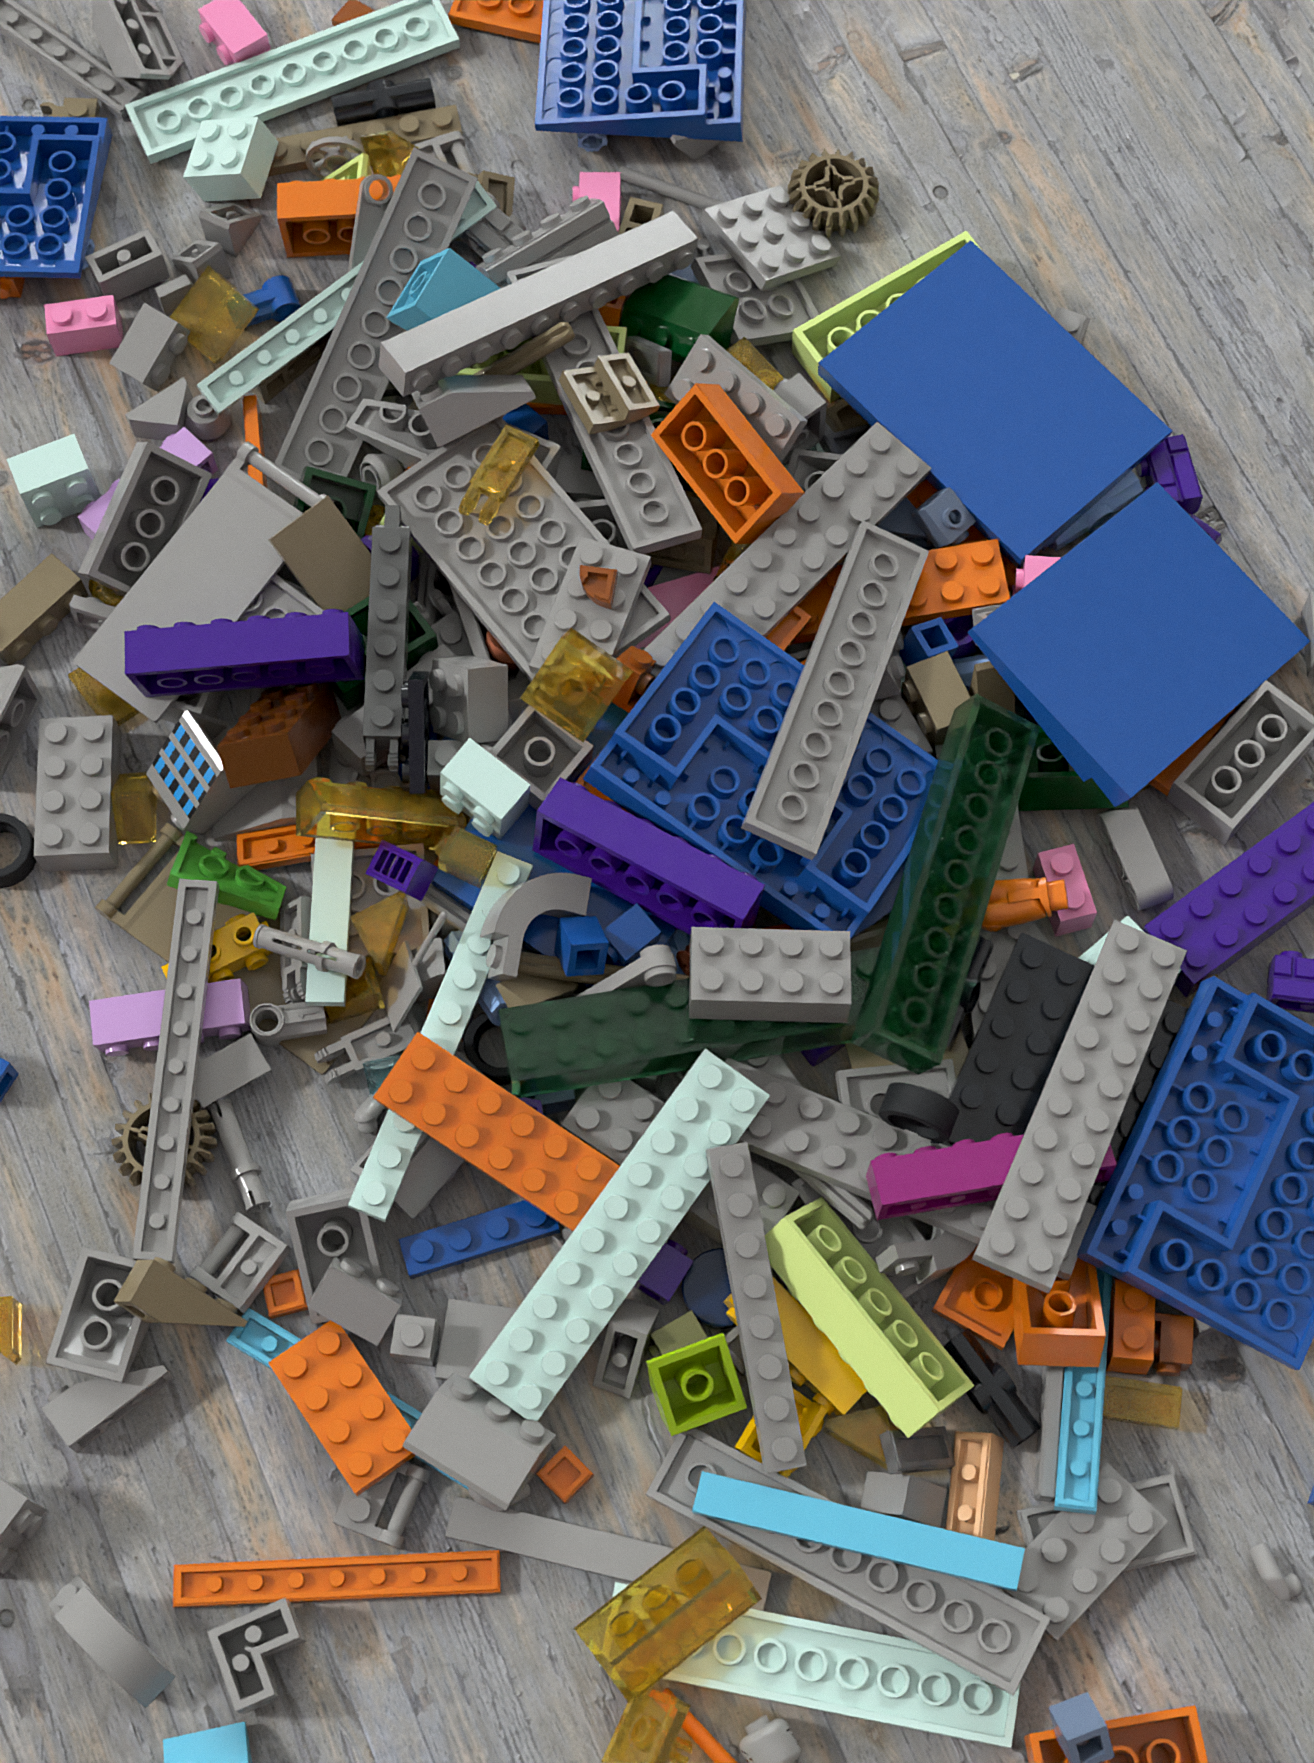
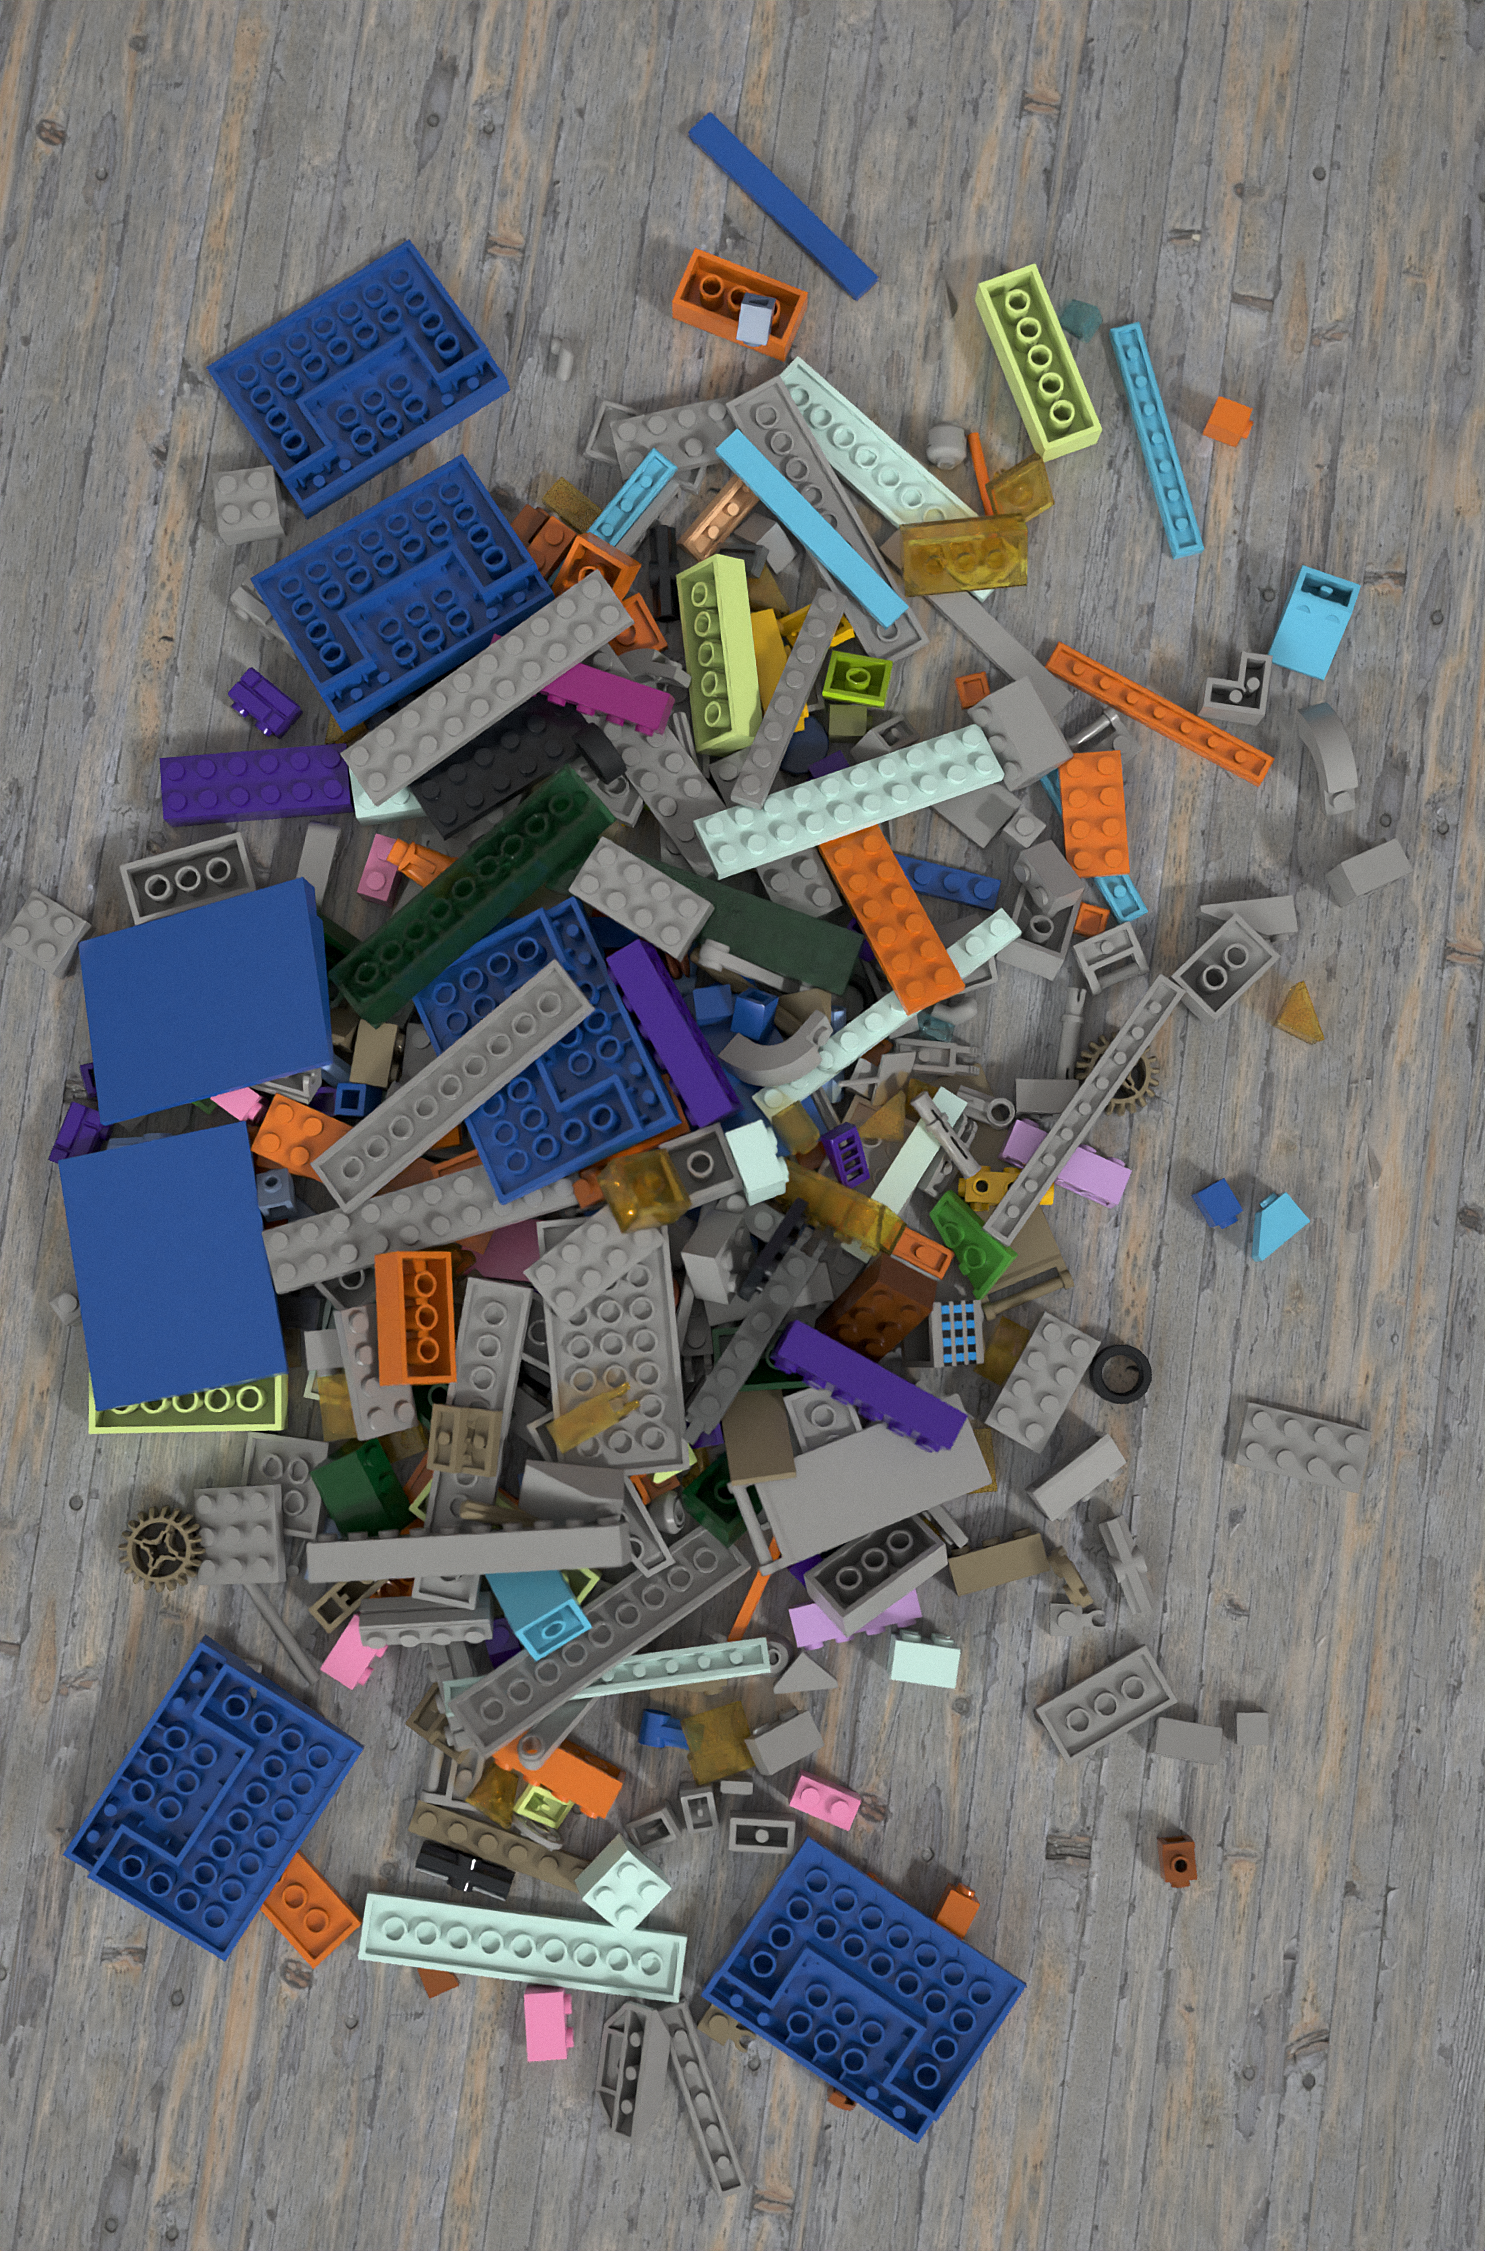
camera: 155 degrees left, 15 degrees up
(162, 1296) = (1177, 943): dark tan slope -> none
(599, 584) = (577, 1267): dark orange tile -> none
(651, 360) = (410, 1467): flat silver tile -> none

